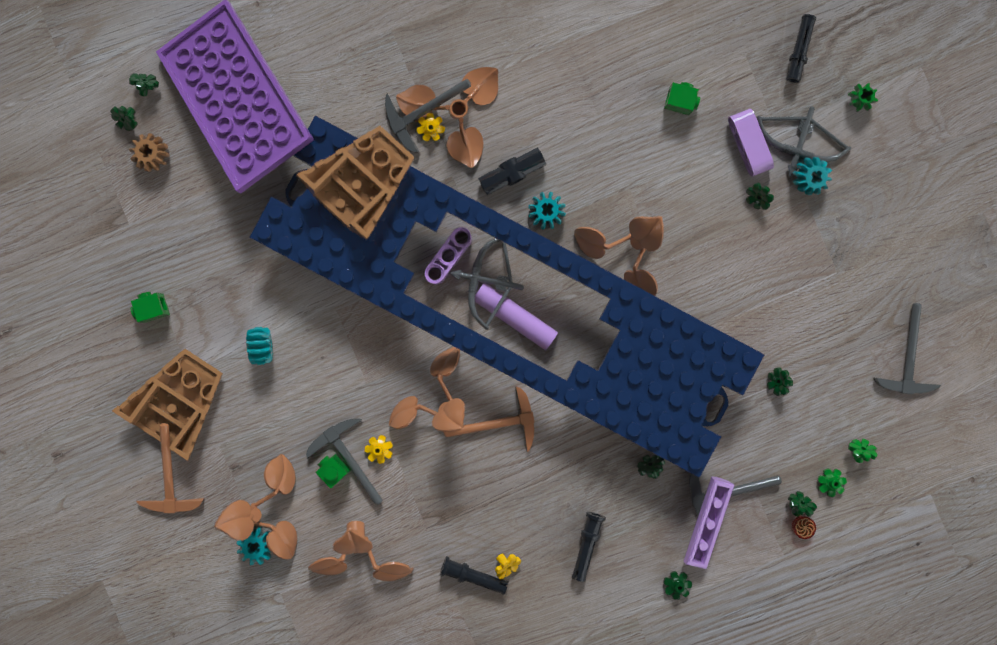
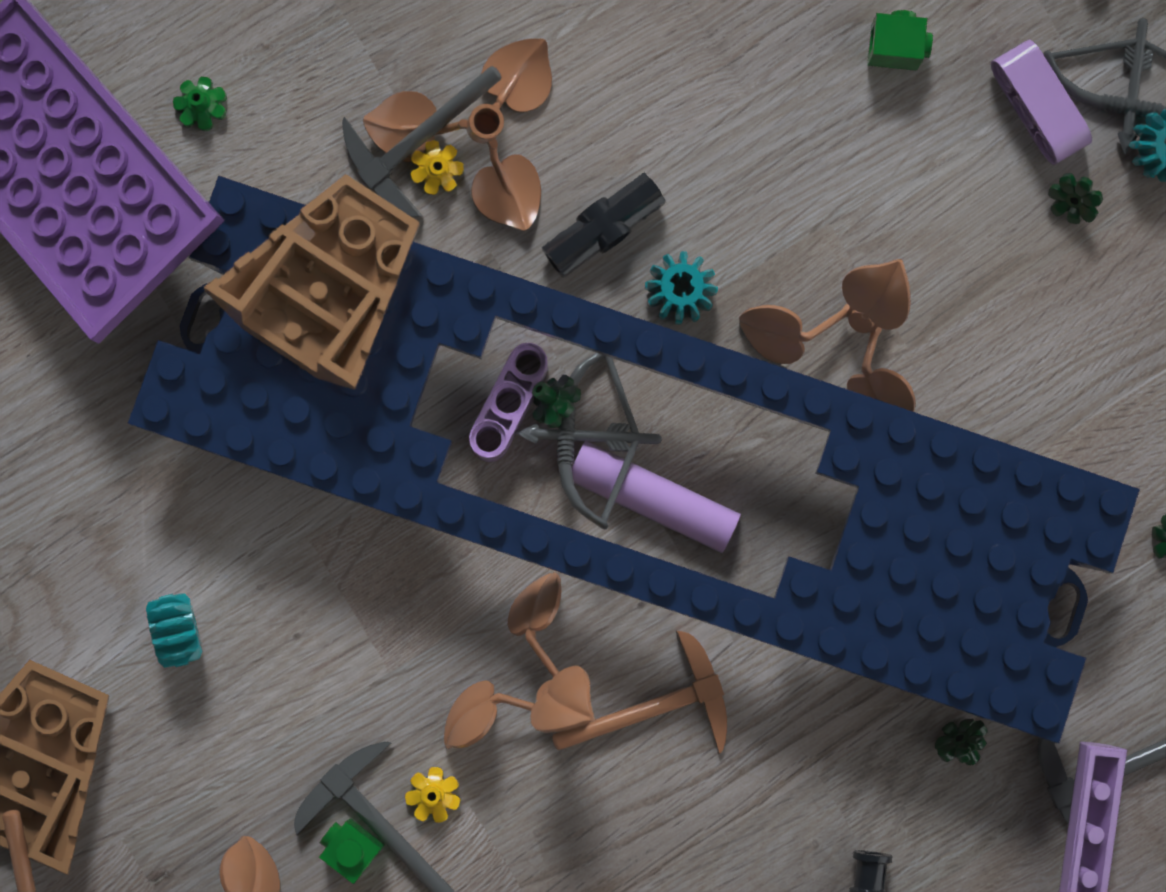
camera: 15 degrees left, 5 degrees down
(314, 74) = (200, 103): none -> green plant
(472, 259) = (554, 400): none -> dark green plant

